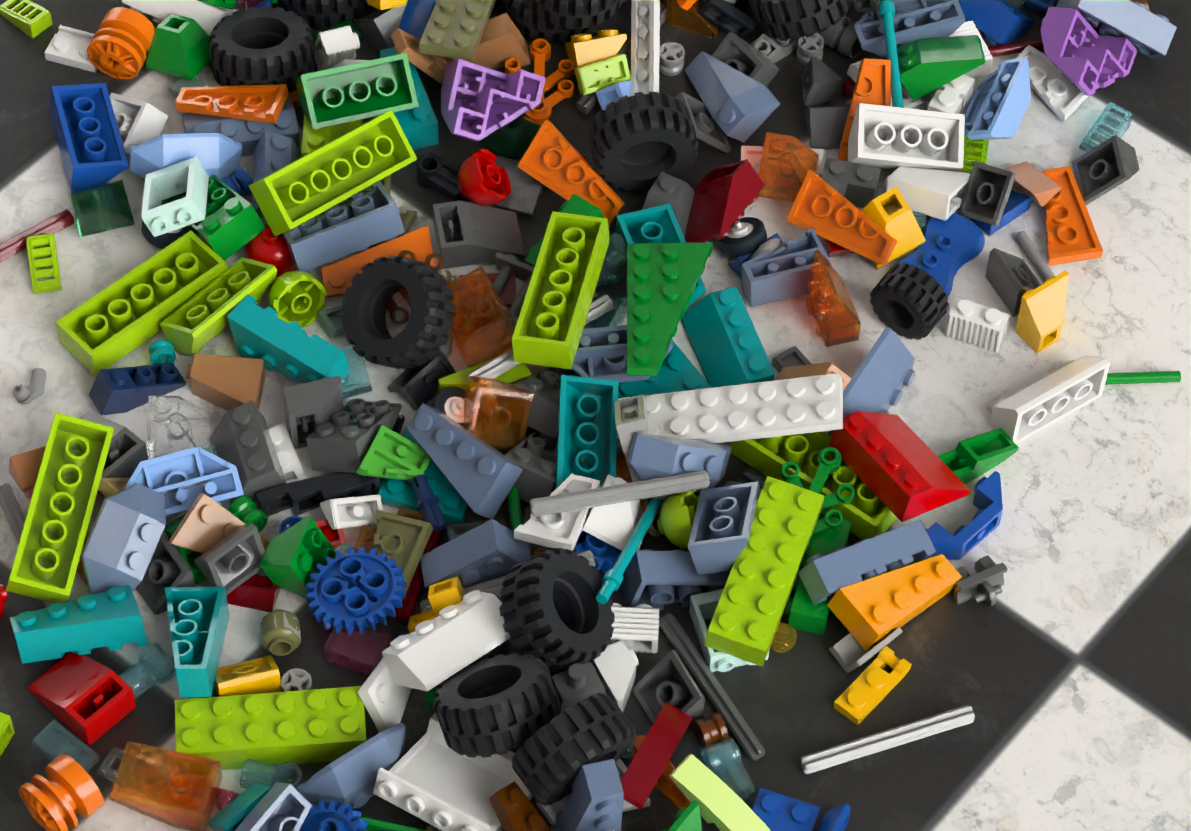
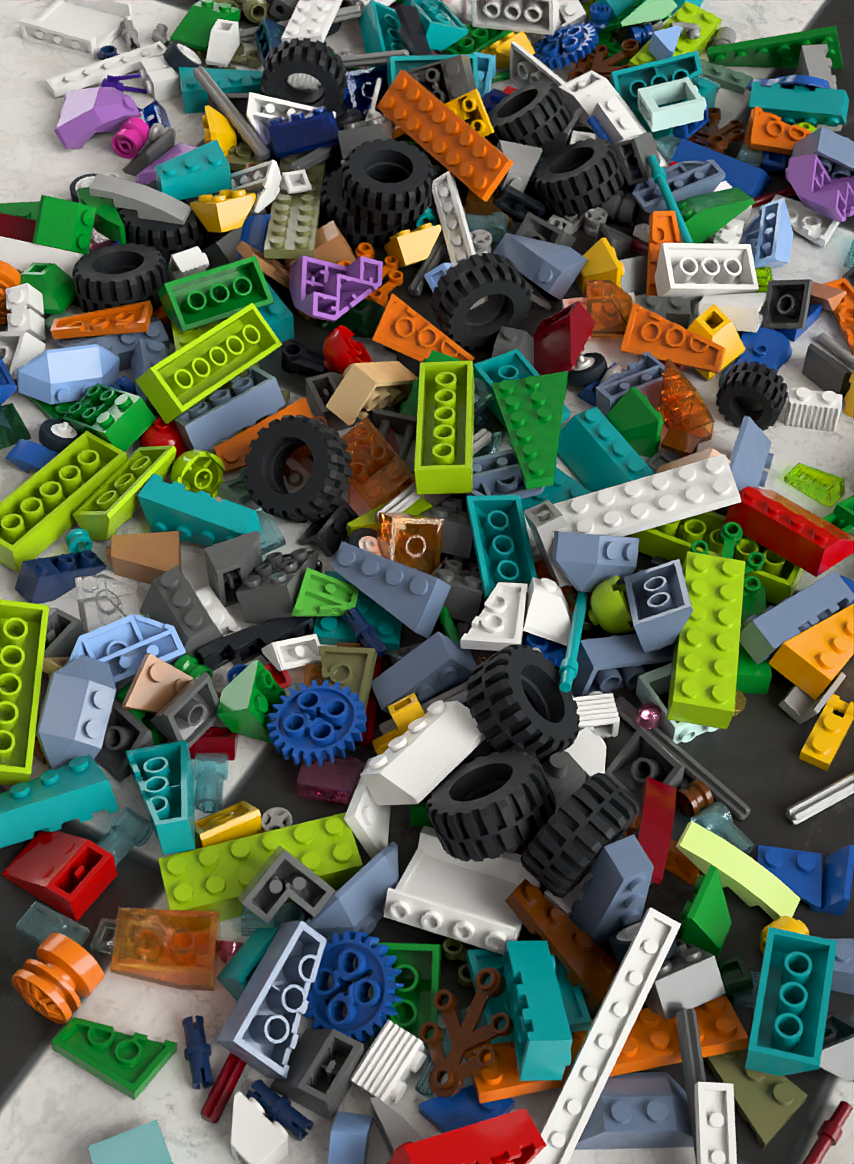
camera: 10 degrees left, 5 degrees down
(130, 246) = (30, 455): none -> blue slope
(150, 86) = (25, 319): none -> white piece
(170, 181) = (66, 401): light aqua window -> none
(243, 624) = (210, 774): none -> clear light blue piece
(280, 632) = (249, 776): olive head -> none
(287, 740) = (283, 878): none -> dark grey brick
(498, 229) = (370, 387): none -> tan wedge
(602, 74) = (426, 259): lime plate -> none
(619, 493) = (552, 590): light grey axle -> none
(621, 22) = (430, 218): none -> teal bush
(690, 639) = (648, 715): none -> clear pink hinge
(692, 37) = (495, 223): none -> clear light blue piece
(774, 313) = (637, 422): none -> green slope
(793, 114) = (601, 265): none -> yellow slope
(818, 343) = (680, 442): none -> reddish brown panel
(961, 426) = (828, 494): none -> clear neon green slope

